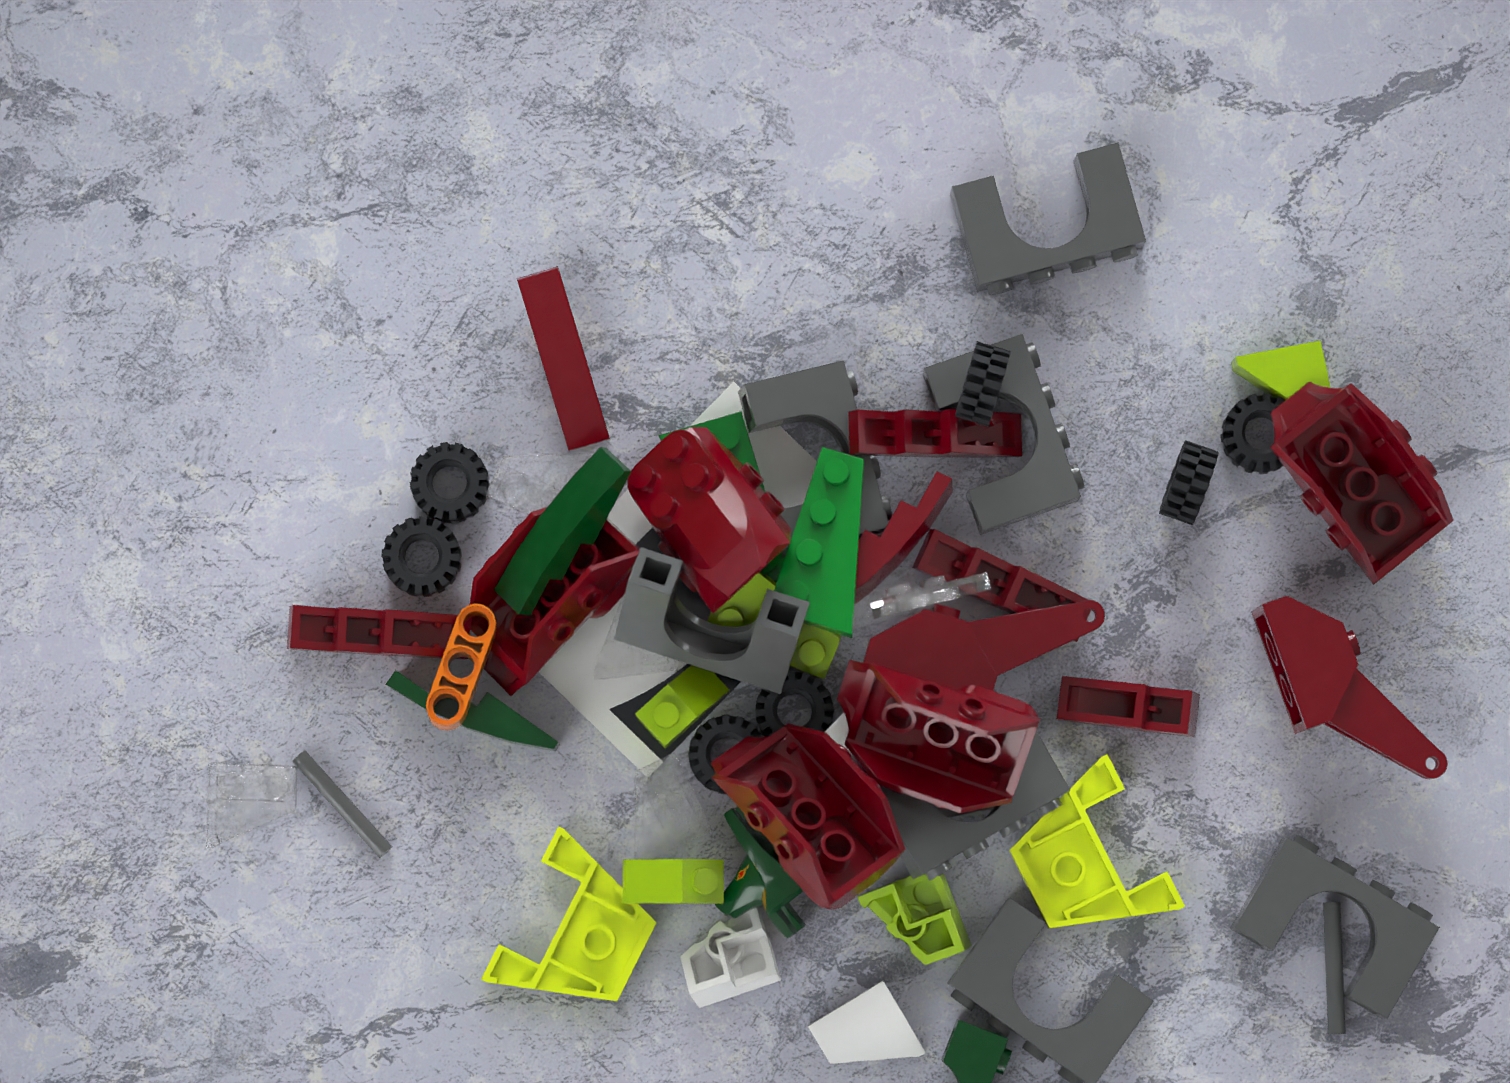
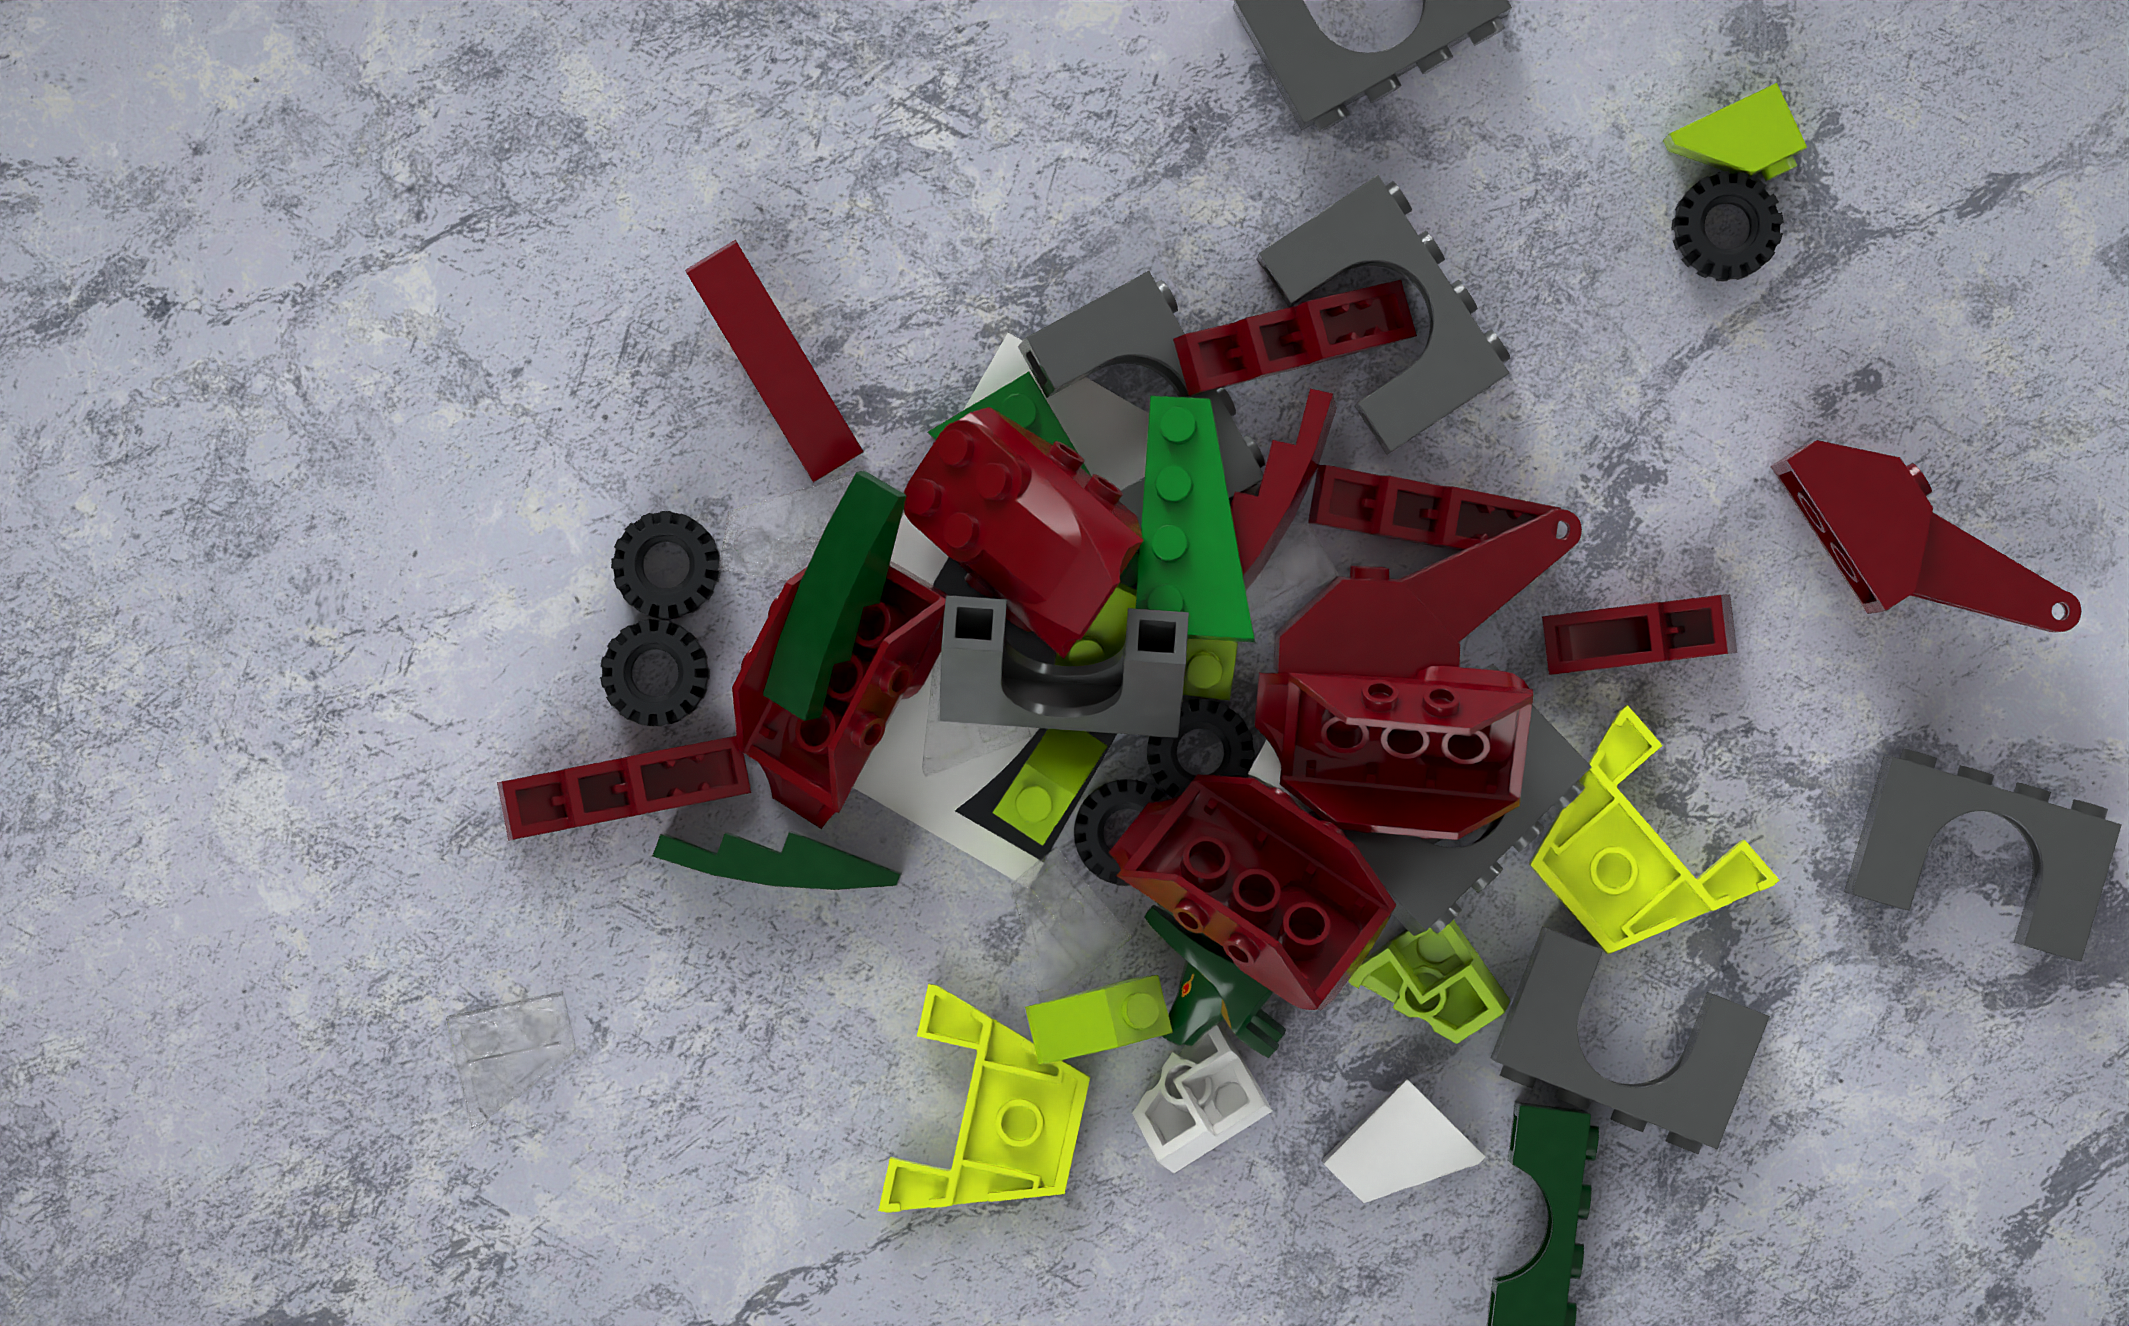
camera: 20 degrees left, 5 degrees up
(342, 804) = (635, 1025): dark grey bar -> none
(461, 645) = (739, 781): orange beam -> none
(931, 591) = (1344, 552): clear wing -> none
(982, 383) = (1343, 258): black tyre -> none
(1188, 482) = (1648, 318): black tyre -> none
(1334, 967) = (1993, 910): dark grey bar -> none
(1359, 475) = (1872, 252): dark red slope -> none

